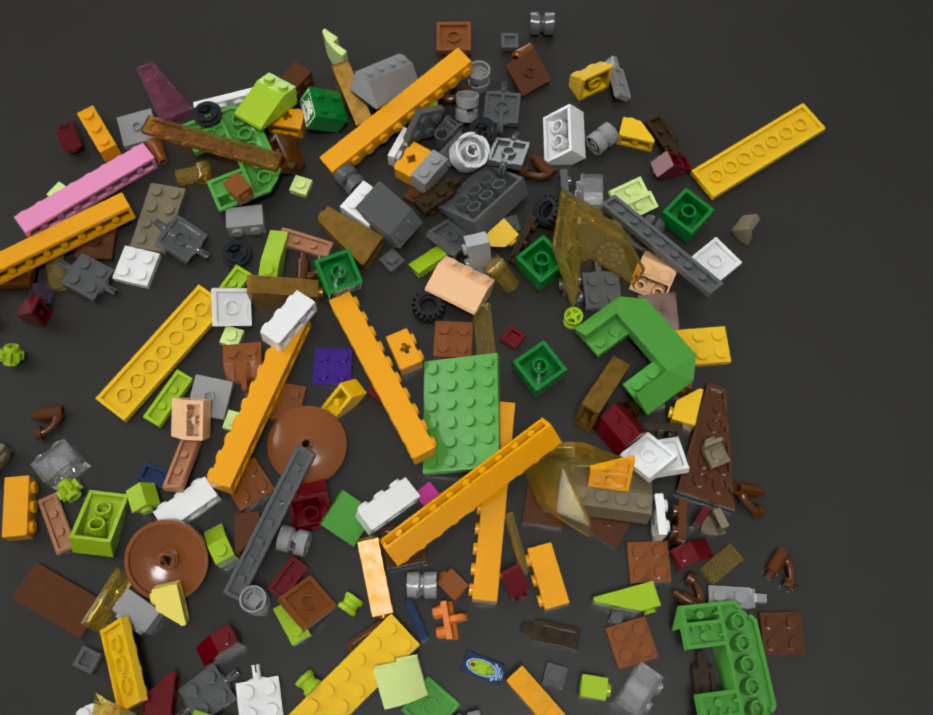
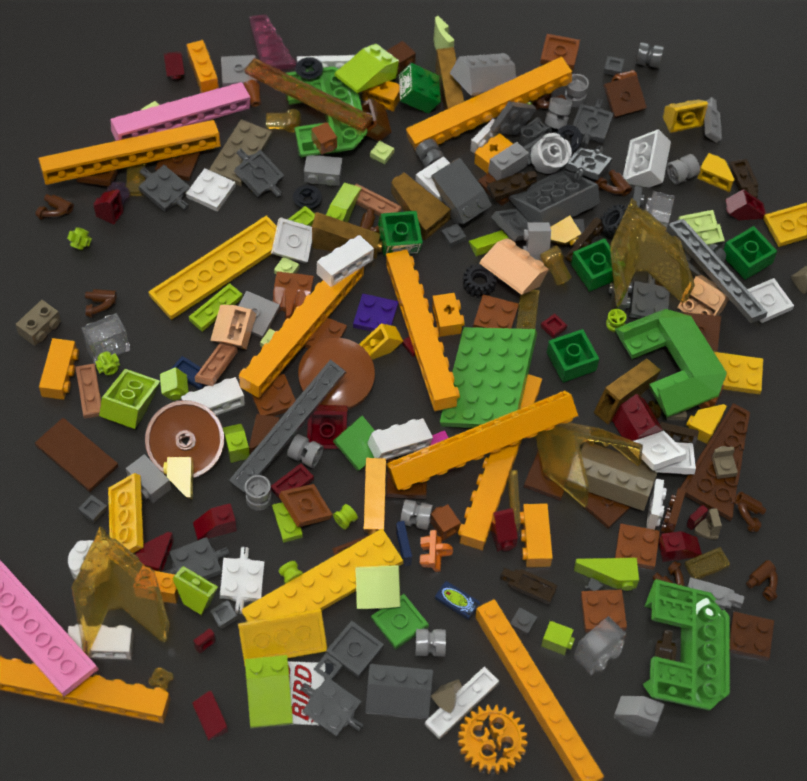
camera: 10 degrees right, 10 degrees down
(102, 607) = (116, 467): clear yellow tile -> none
(612, 474) = (619, 452): light orange wing -> none

